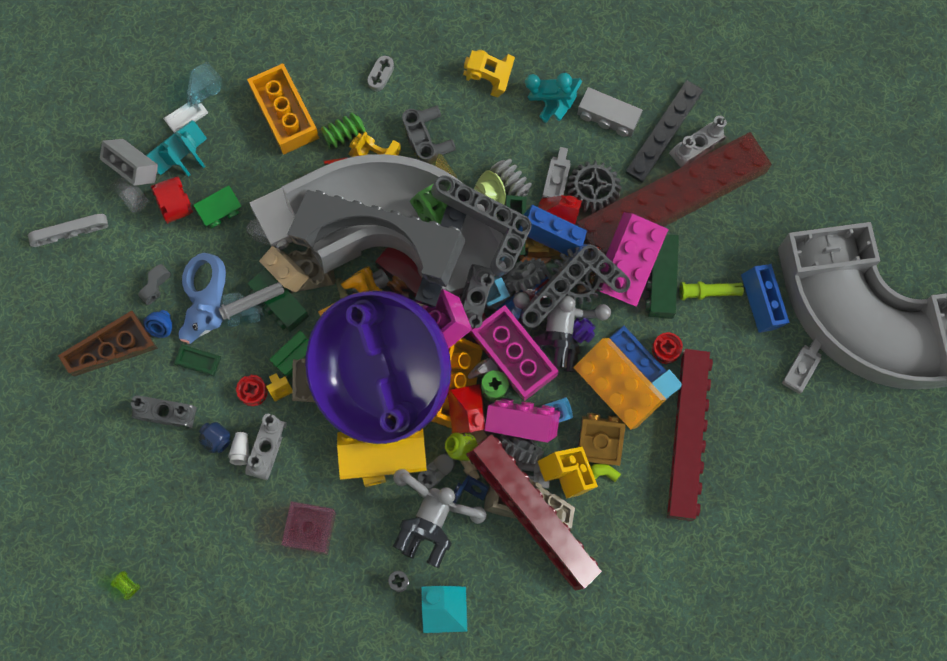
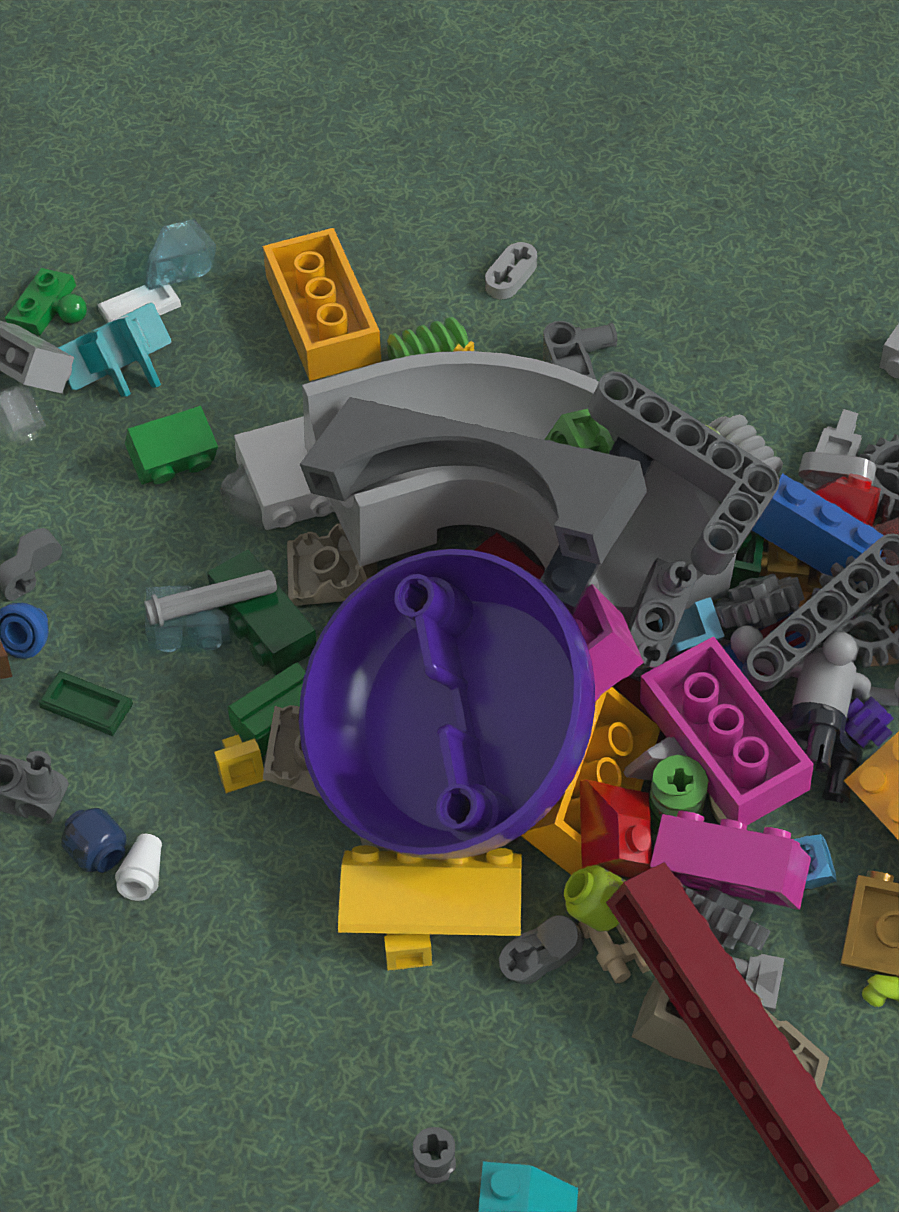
camera: 10 degrees right, 20 degrees down
(134, 117) = (45, 297): none -> green plate
(171, 199) = (88, 424): red brick -> none
(204, 312) = (116, 602): medium blue animal -> none
(251, 390) = (183, 764): red wheel -> none
(260, 462) = (182, 894): light grey piece -> none
(284, 269) = (283, 555): tan brick -> none
(309, 528) = (259, 1025): clear pink brick -> none
(430, 519) = (510, 1037): wheel -> none
(467, 486) = (598, 986): dark blue bracket -> none
(499, 79) = (733, 289): yellow tile -> none
(556, 94) = (840, 325): teal piece -> none
(559, 189) = (825, 467): none -> light grey beam
(572, 470) = (825, 969): yellow brick -> none

